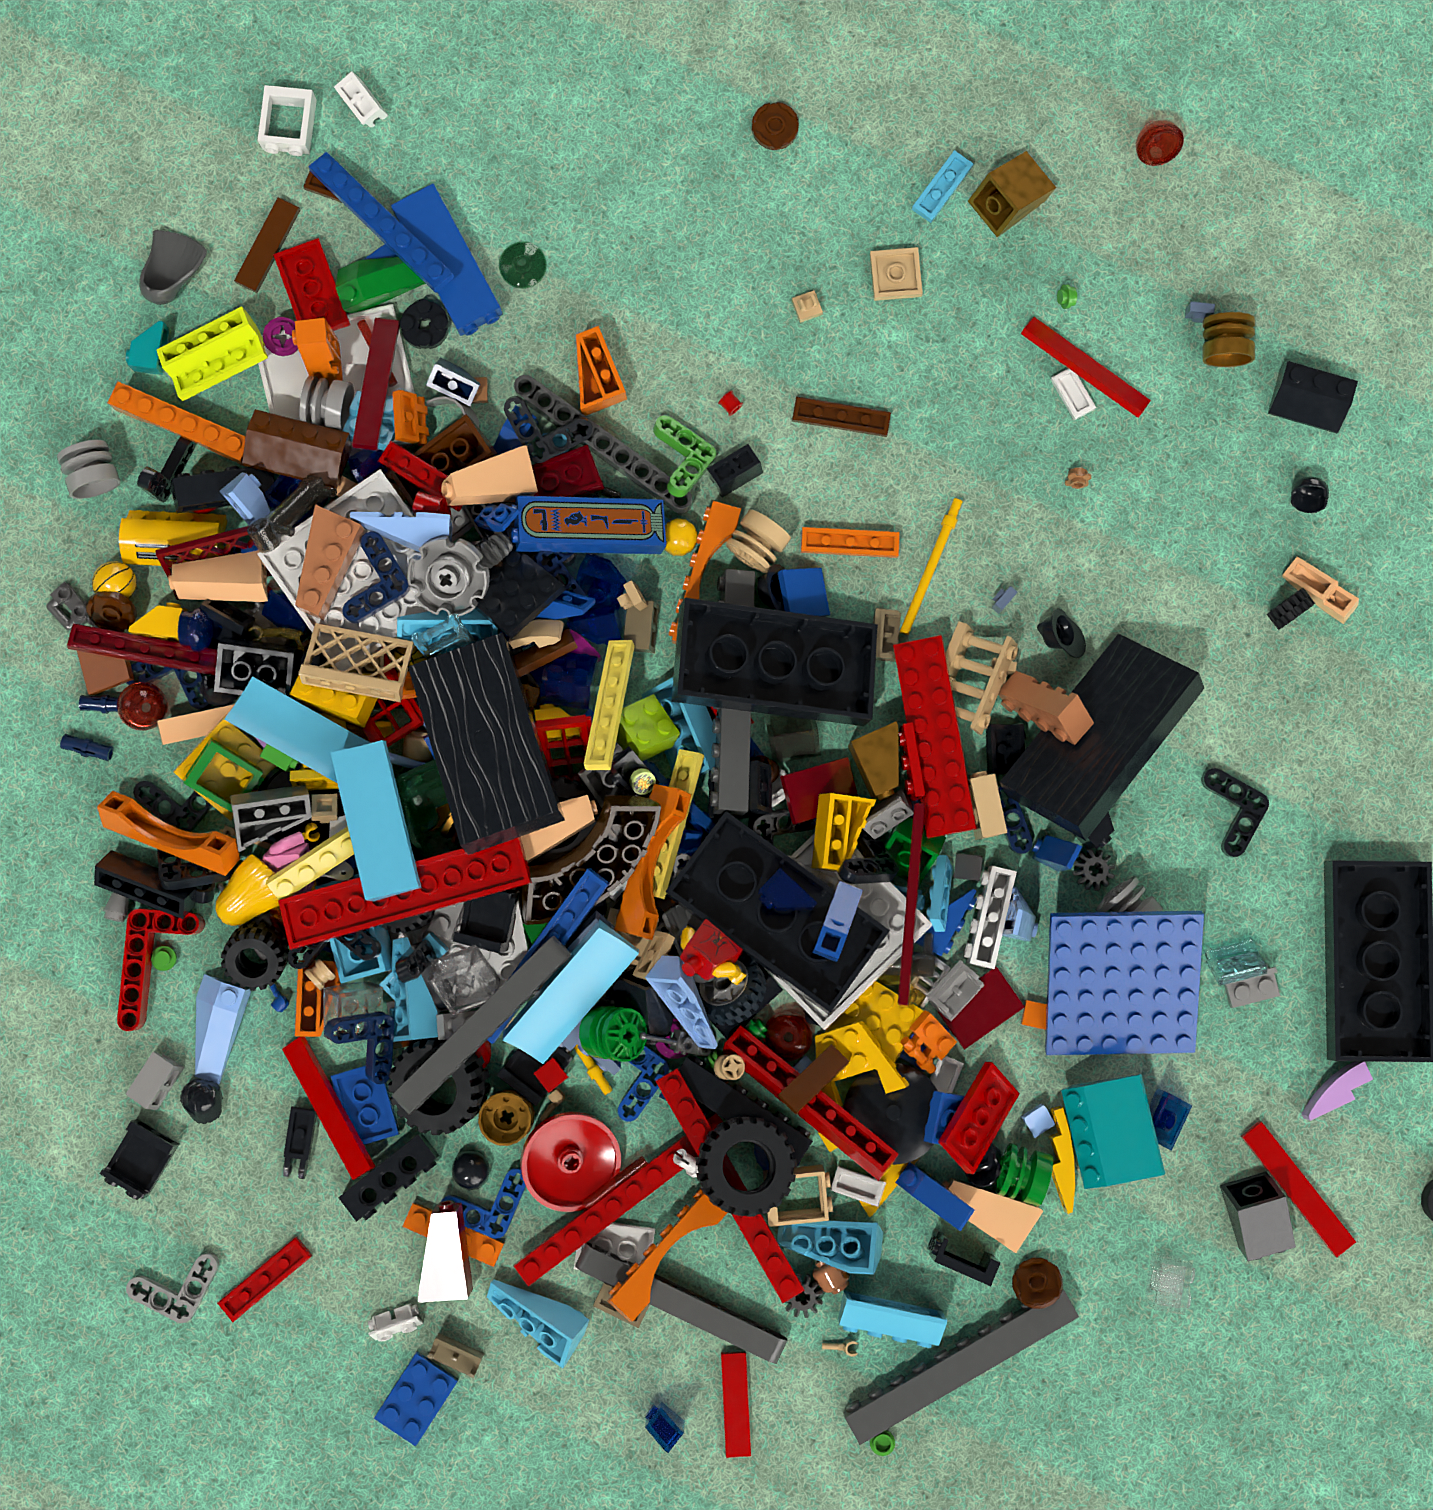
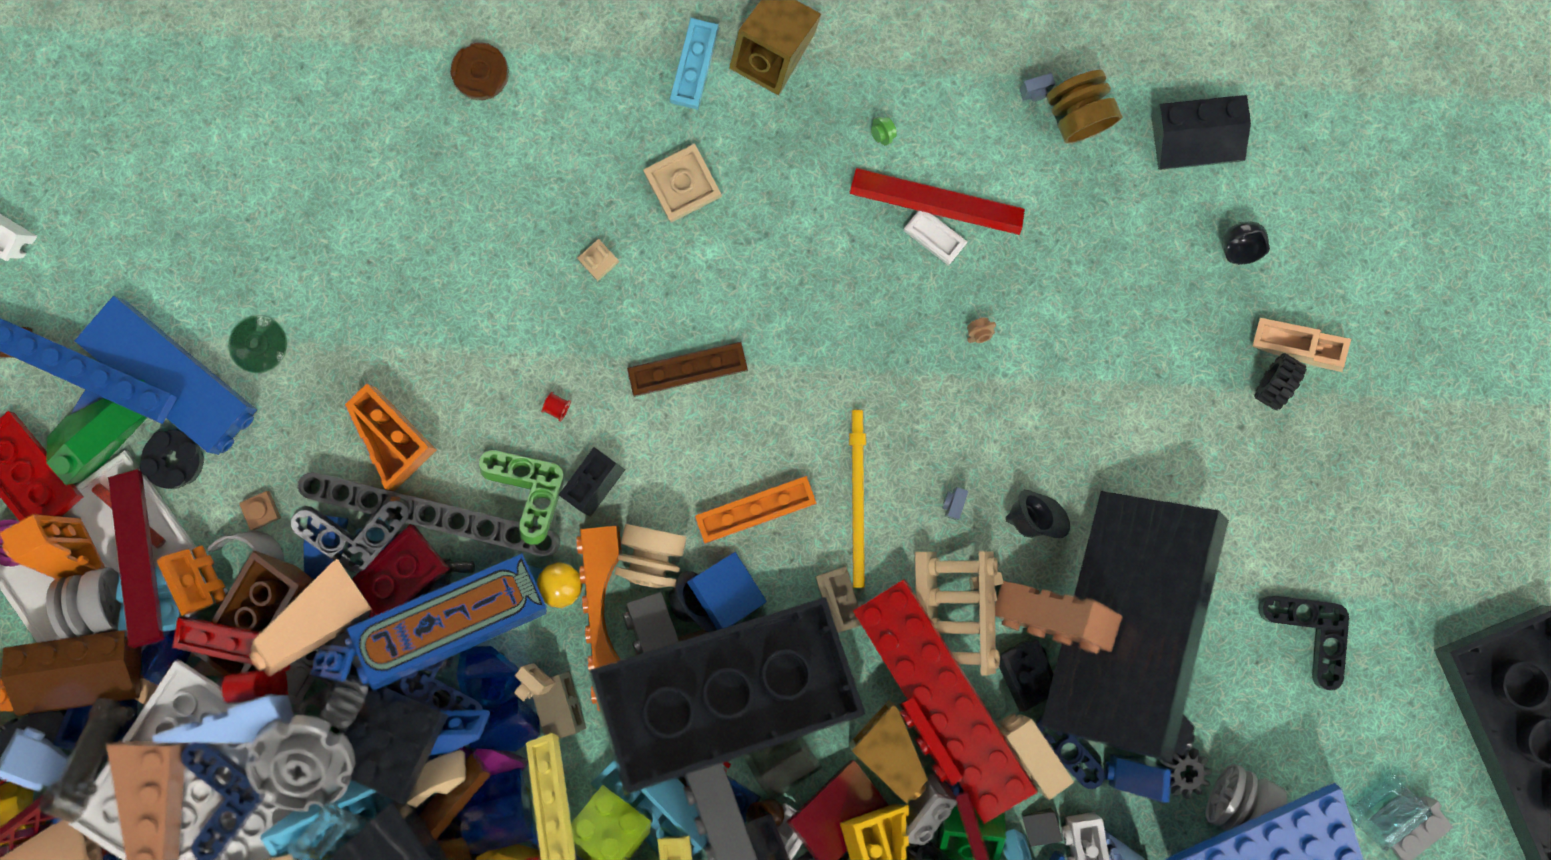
camera: 20 degrees left, 0 degrees up
(453, 381) = (225, 514): slope -> none

